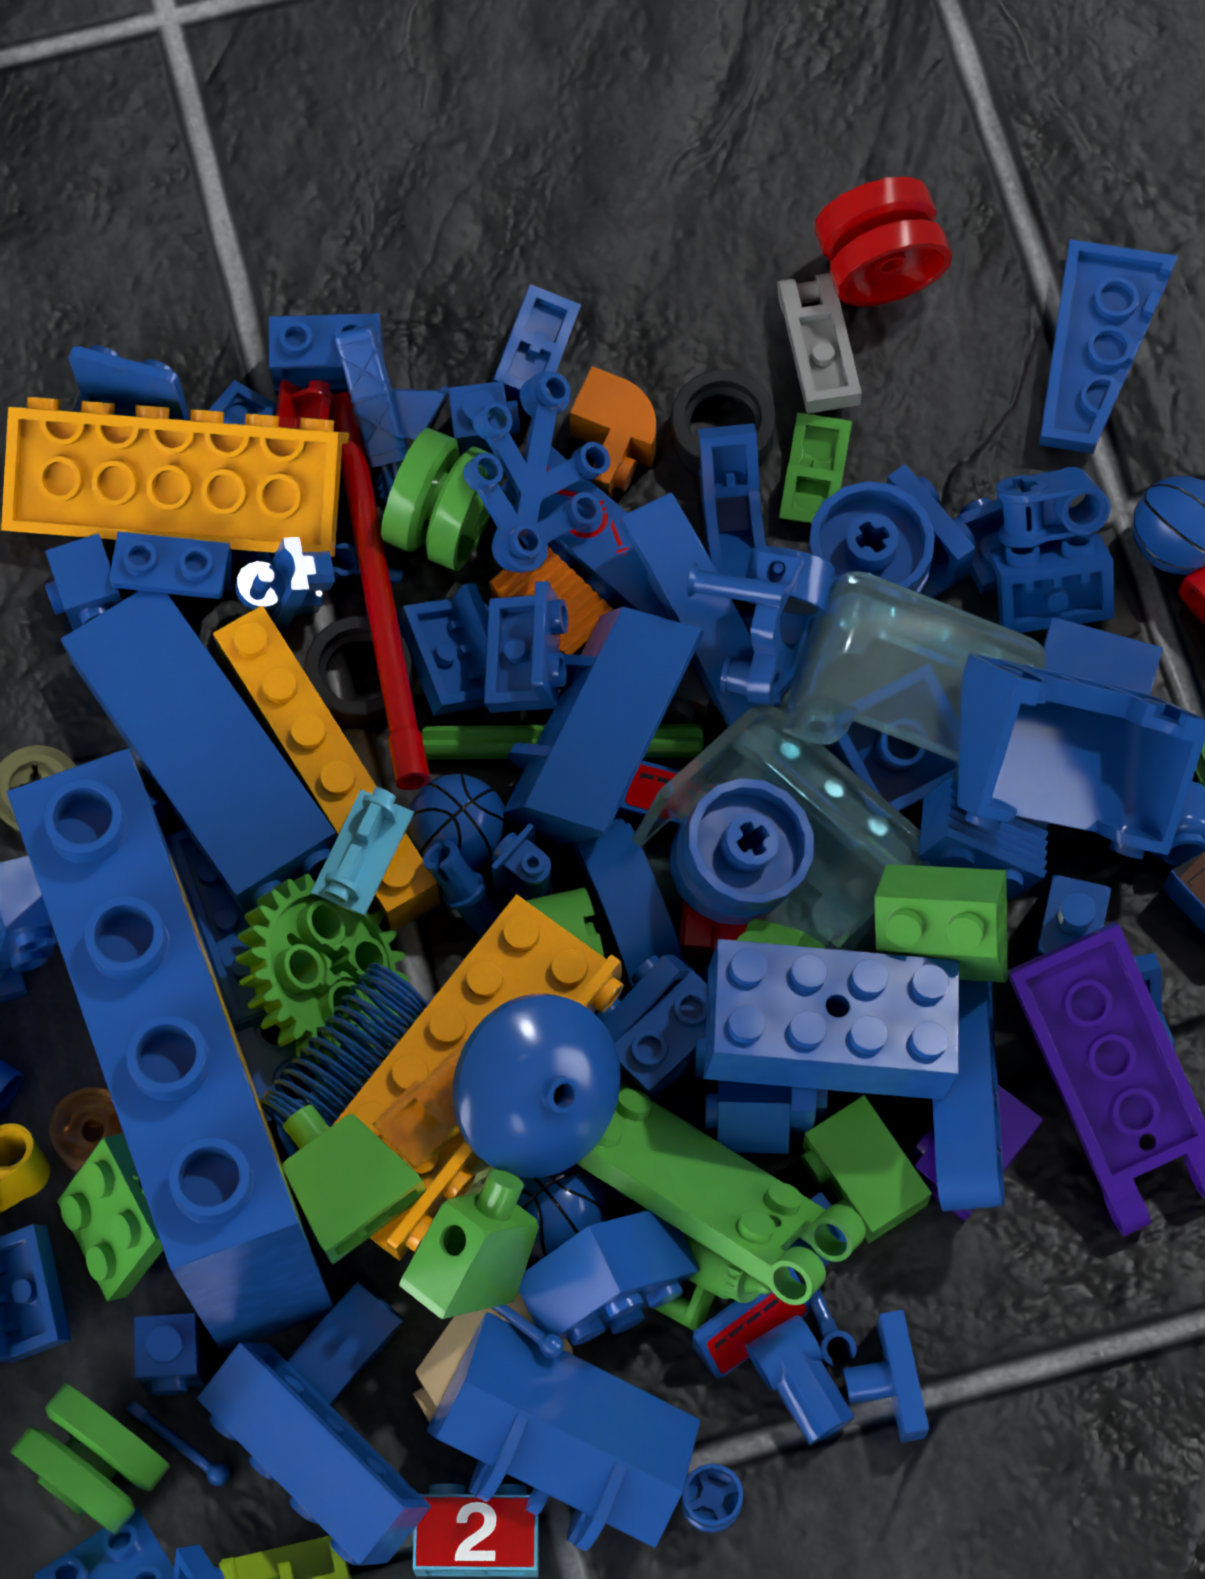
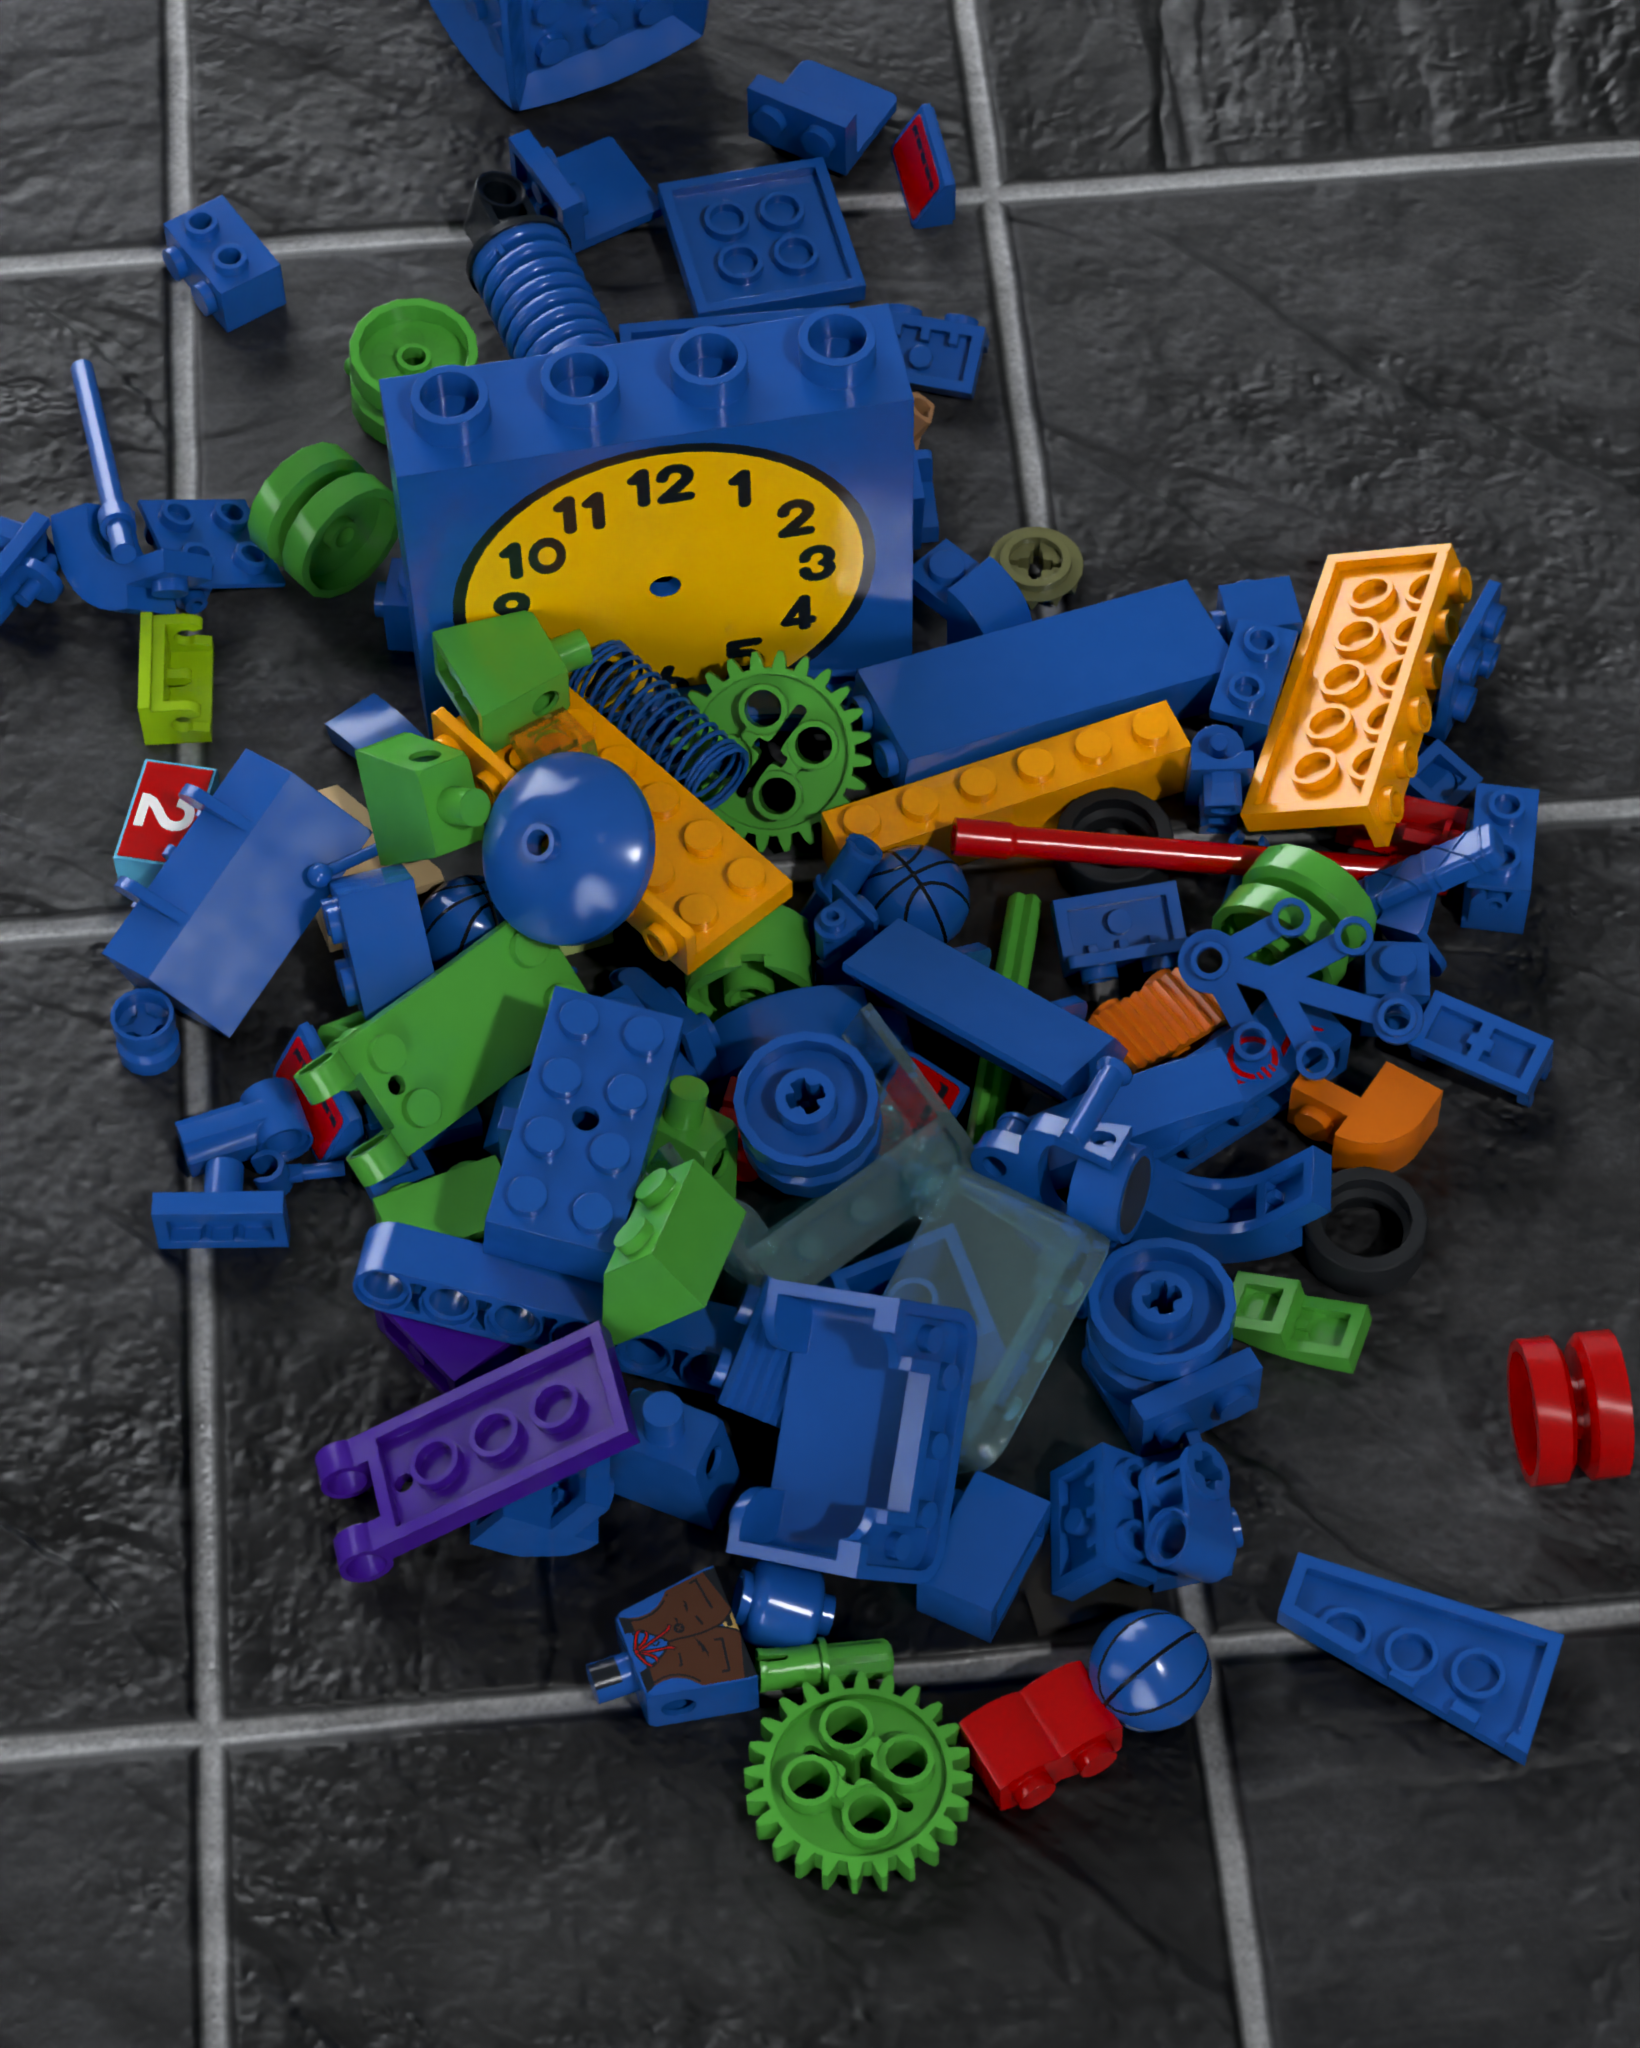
camera: 100 degrees right, 15 degrees down
(216, 1473) = (297, 643): blue hinge -> none
(312, 1454) = (280, 692): blue brick -> none
(363, 851) = (880, 779): medium azure hinge -> none
(525, 652) = (1088, 961): blue bracket -> none
(819, 344) = (1445, 1338): light grey plate -> none

